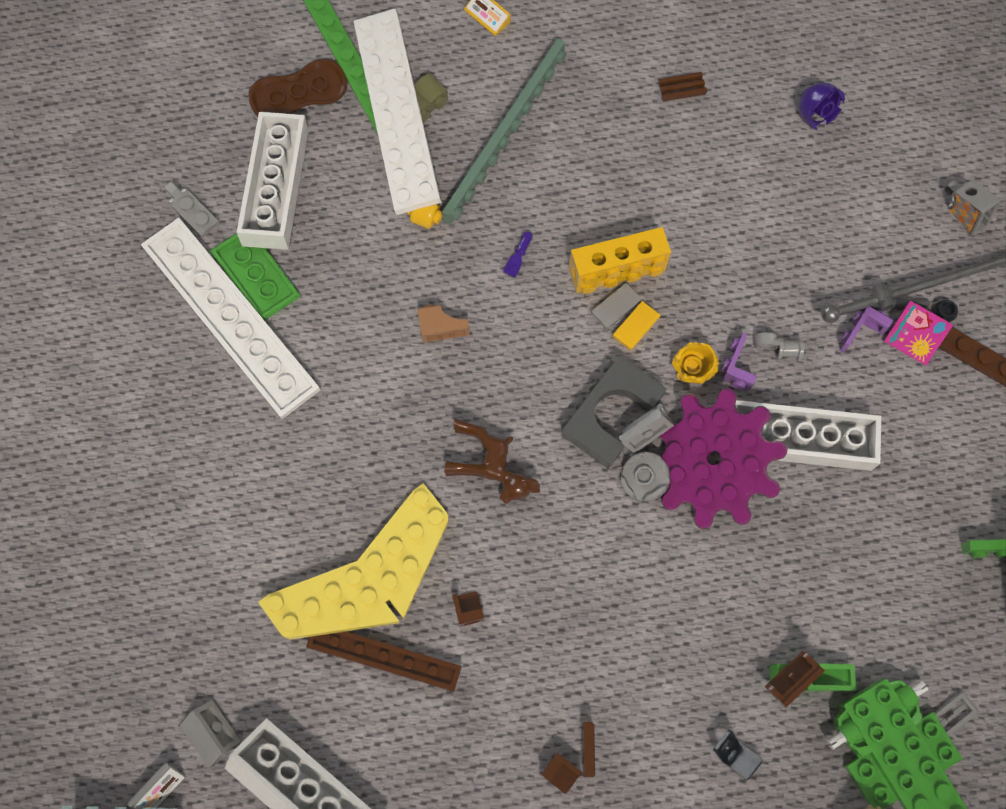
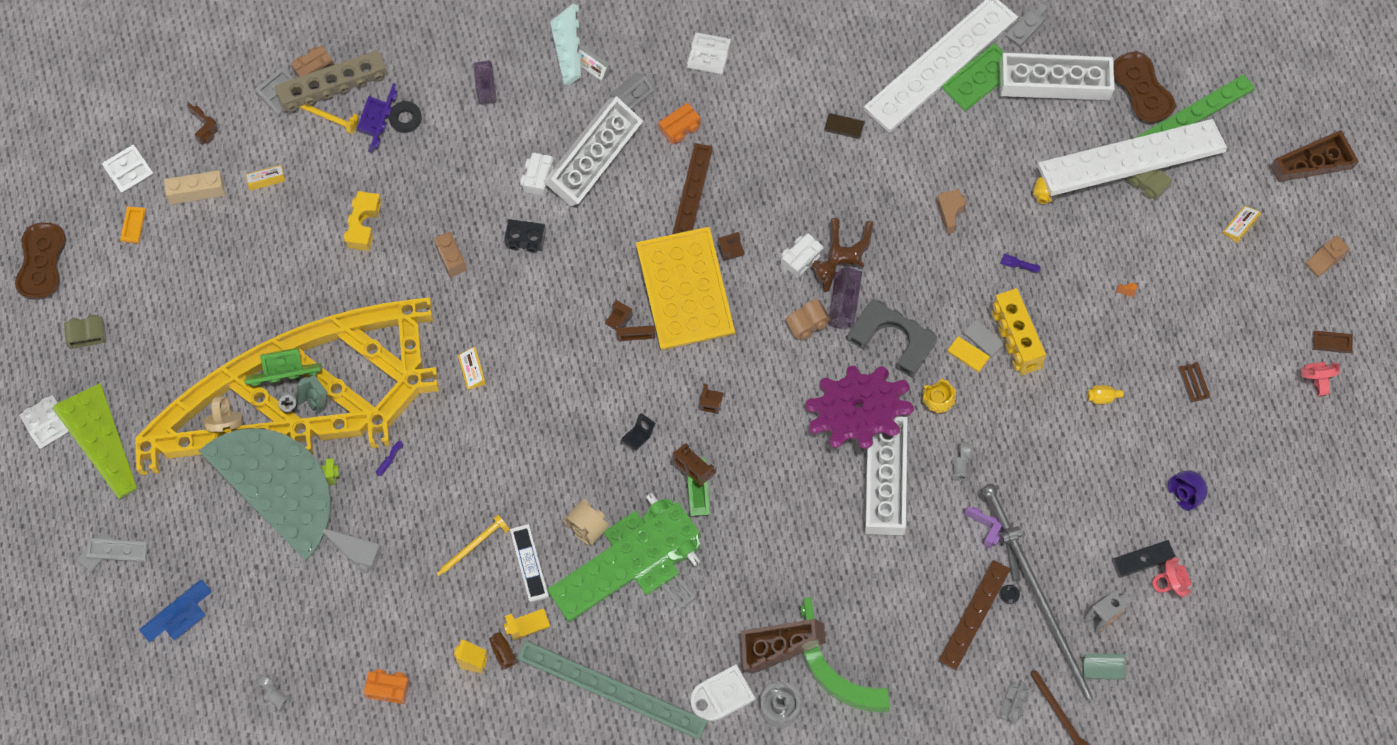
camera: 90 degrees right, 5 degrees down
(155, 612) = (711, 46): none -> white slope
(272, 666) = (679, 124): none -> orange brick
(302, 445) = (844, 126): none -> dark brown tile
(359, 592) = (750, 188): light yellow wing -> none
(488, 515) = (801, 255): none -> white brick
(501, 138) = (1134, 246): sand green plate -> none
(526, 676) = (685, 288): none -> yellow plate
(558, 464) = (845, 298): none -> clear purple brick
(564, 139) = (1128, 290): none -> orange tile
(584, 513) = (808, 319): none -> medium nougat brick
(645, 476) = (842, 363): light grey tile -> none
(646, 428) = (878, 358): light grey panel -> none
(689, 651) = (710, 400): none -> reddish brown panel
(696, 181) = (1103, 394): none -> yellow plant
(737, 377) = (942, 423): medium lavender bracket -> none
(896, 150) = (1132, 563): none -> black tile
(918, 332) = (985, 566): dark pink tile -> none
(929, 131) = (1176, 577): none -> coral tile

